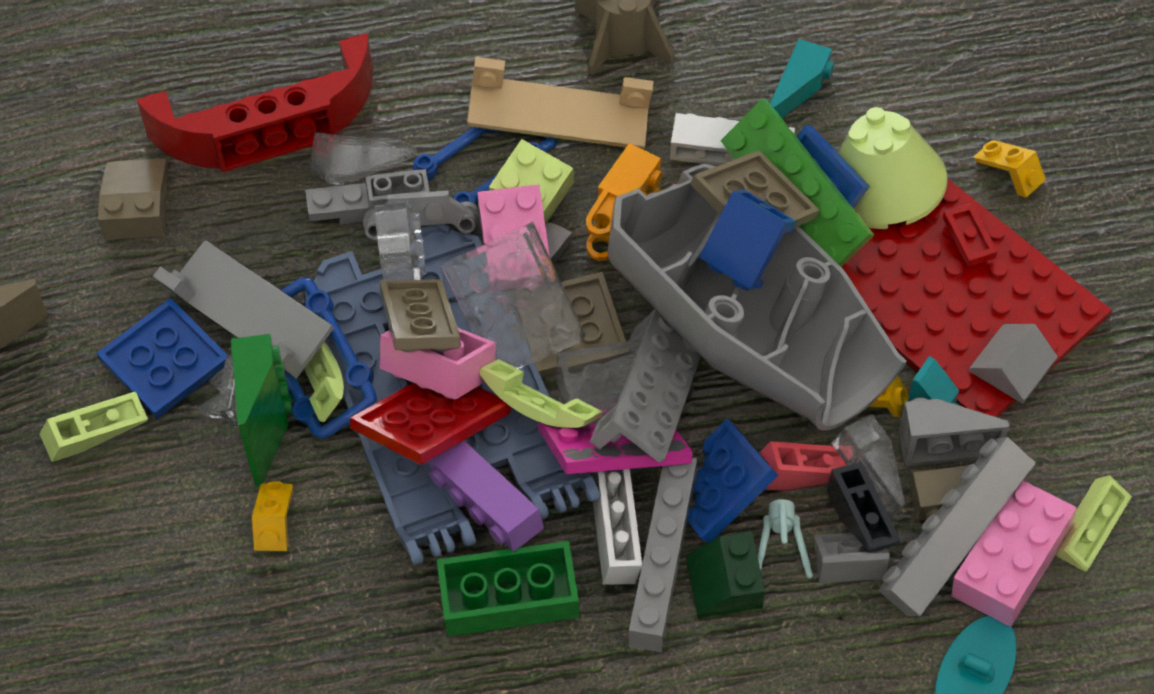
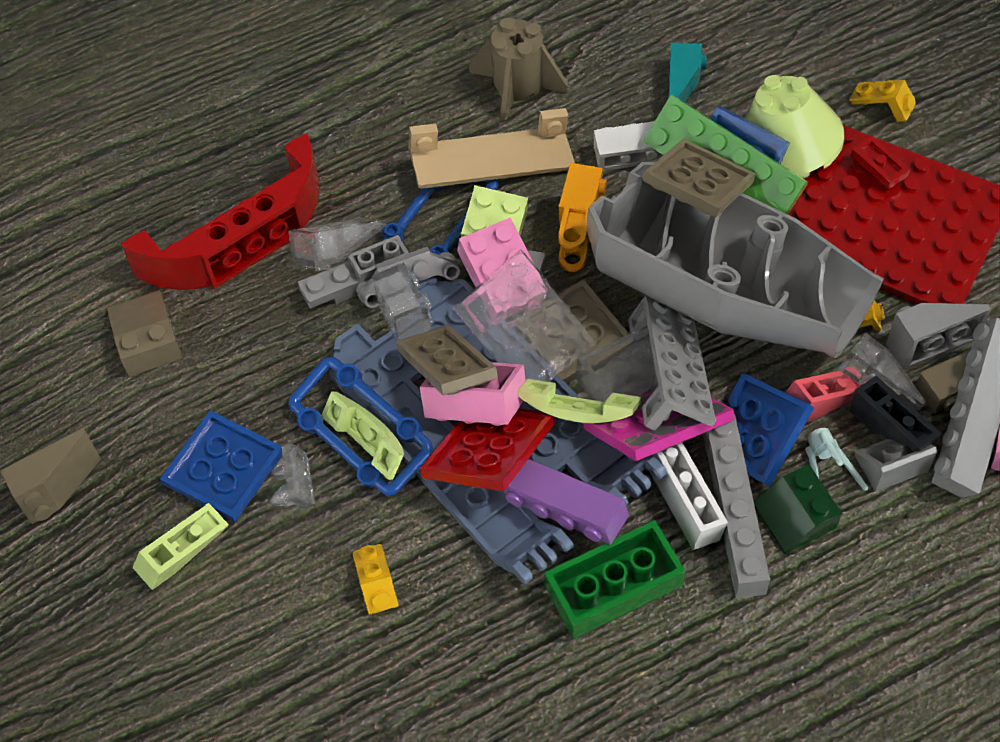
camera: 15 degrees left, 0 degrees up
(247, 305) = (286, 398): light grey bracket -> none
(260, 400) = (331, 473): green slope -> none
(745, 239) = (710, 214): blue panel -> none
(933, 383) = (904, 293): teal slope -> none
(1015, 360) = (961, 253): light grey slope -> none

